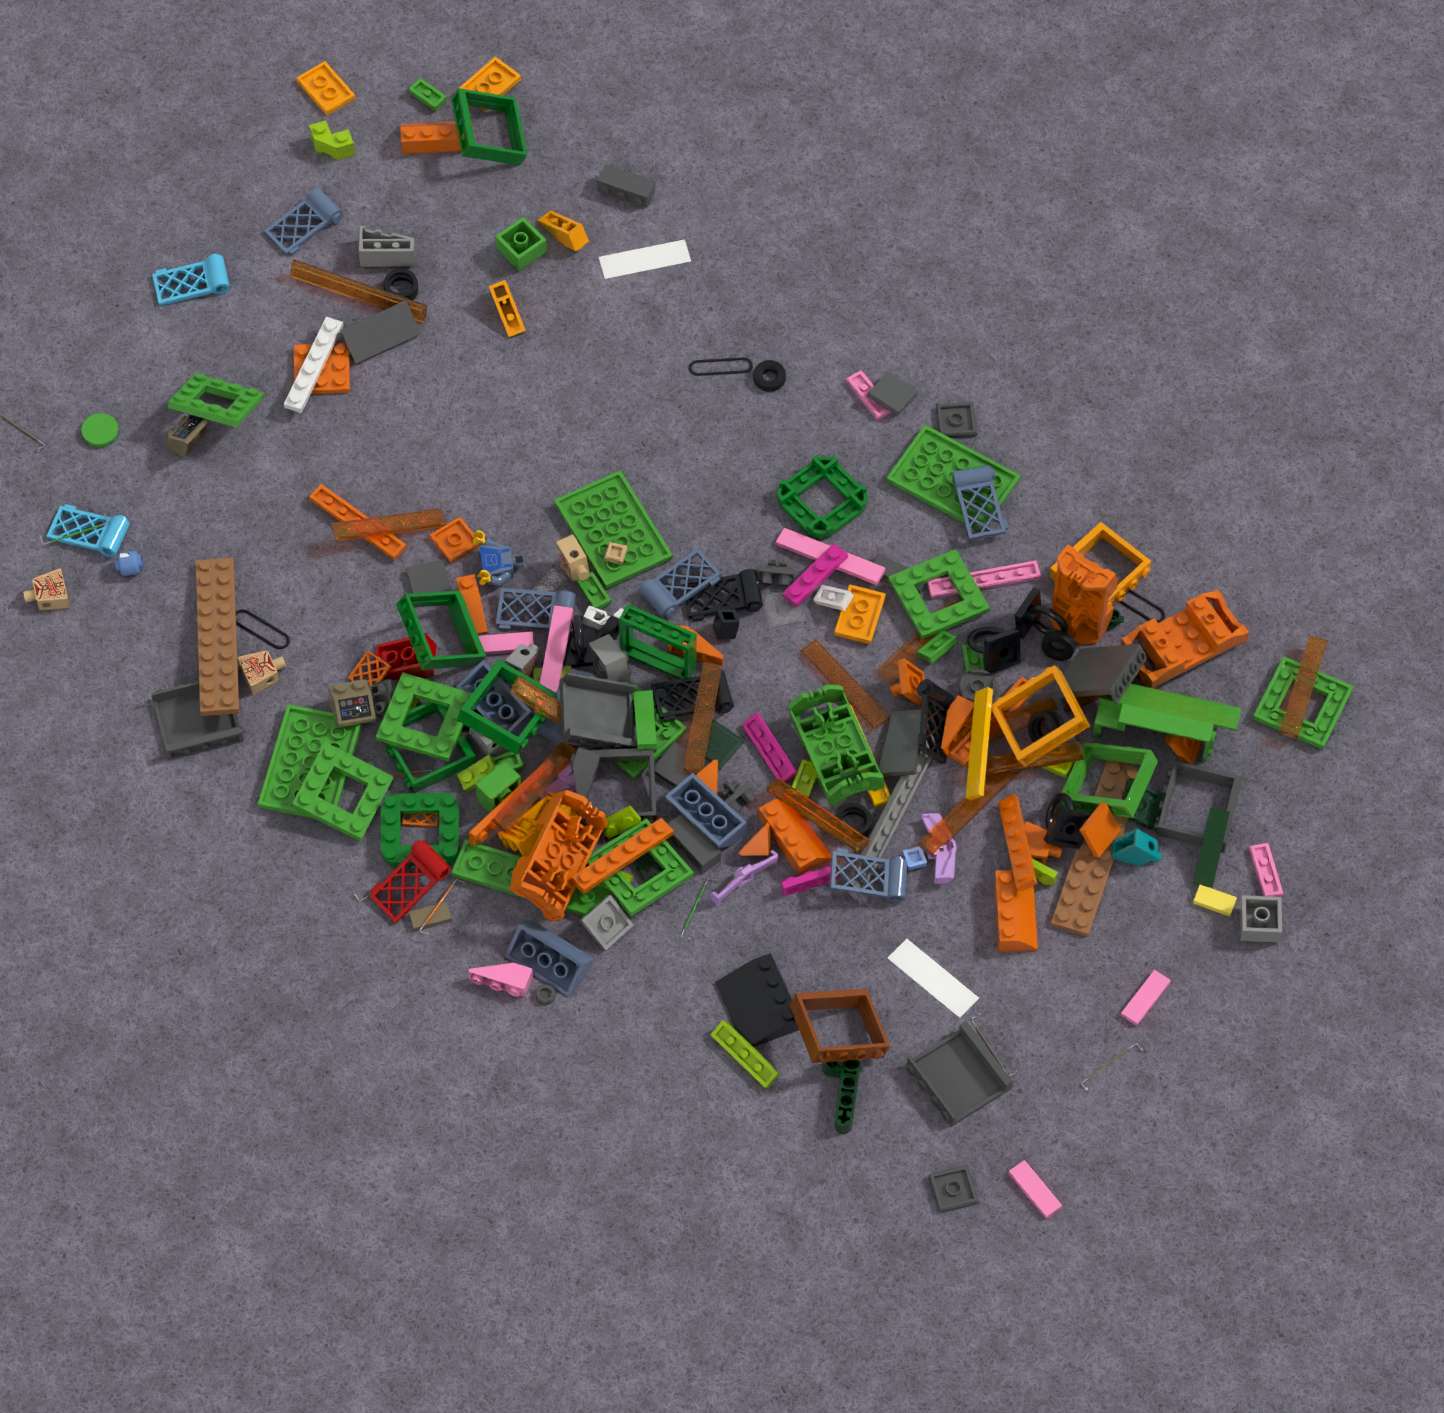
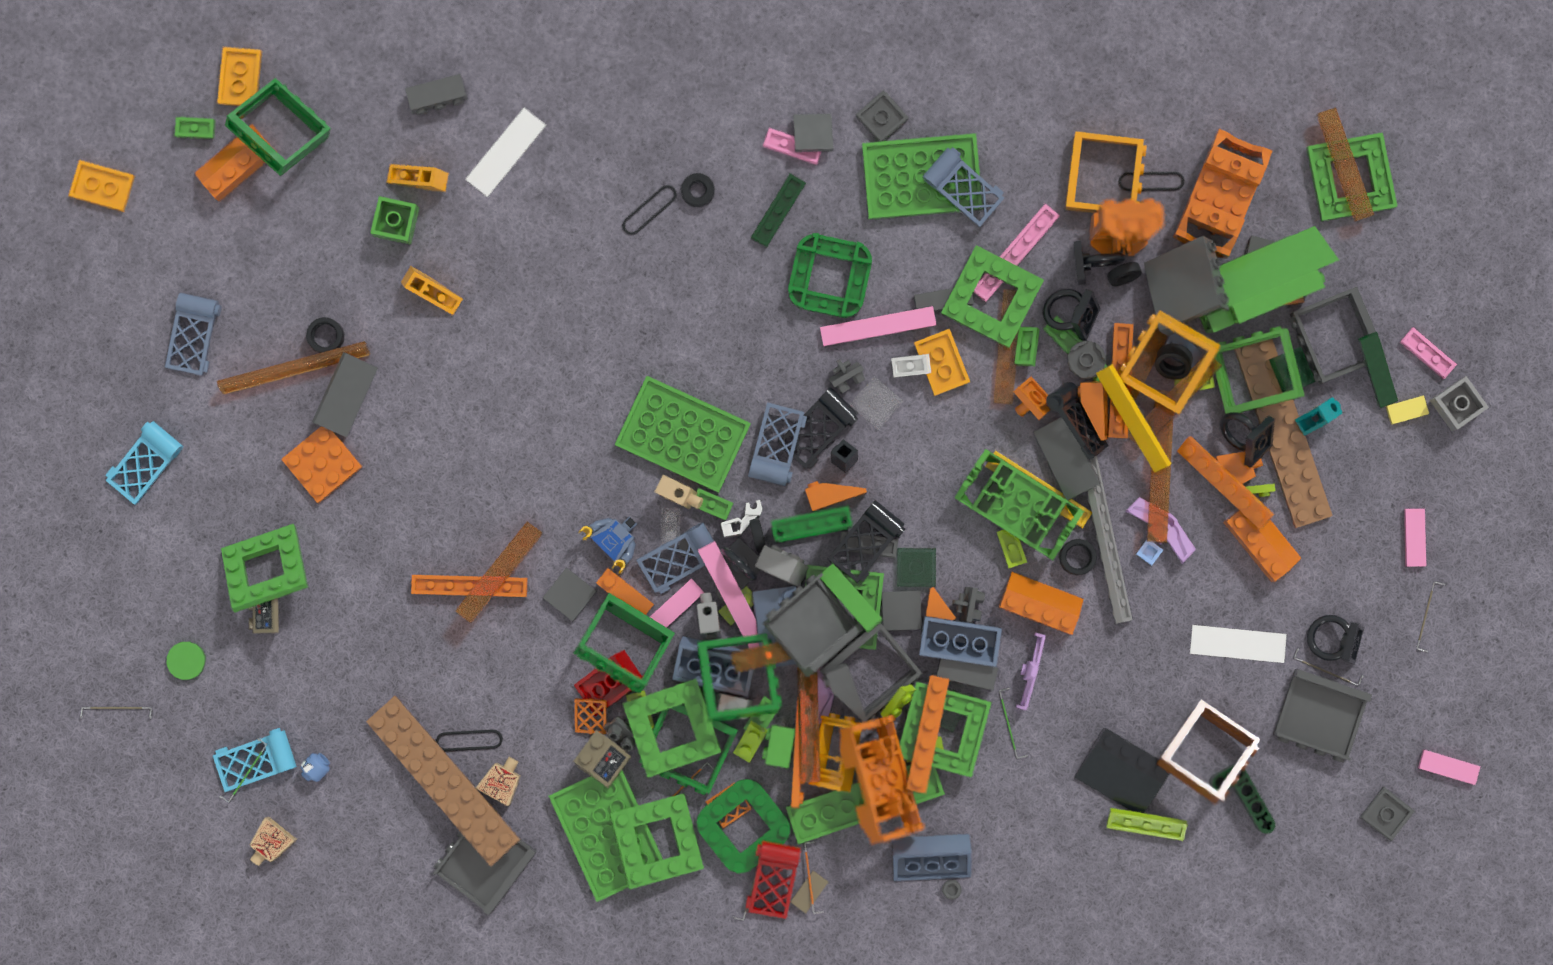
camera: 30 degrees left, 25 degrees up
(313, 365) = (315, 468): white plate -> none
(337, 145) = (160, 238): lime brick -> none
(384, 249) = (284, 312): light grey wedge -> none
(454, 540) = (560, 540): orange tile -> none
(506, 977) = (913, 900): bright pink slope -> none
(606, 922) = (954, 795): light grey plate -> none
(616, 553) = (704, 457): tan tile -> none
(702, 717) = (892, 557): clear orange tile -> none
(759, 844) = (1019, 636): orange slope -> none
(769, 748) = (963, 541): dark pink plate -> none
(806, 881) = (1082, 634): dark pink plate -> none
(815, 575) = (881, 355): dark pink plate -> none
(818, 815) = (1050, 577): clear orange tile -> none
(820, 430) = (778, 210): none -> dark green tile
(837, 675) = (976, 434): clear orange tile -> none
(893, 874) = (1146, 582): sand blue piece -> none
(1023, 1033) = (1349, 643): none -> black tile
(1100, 829) = (1284, 423): orange tile -> none

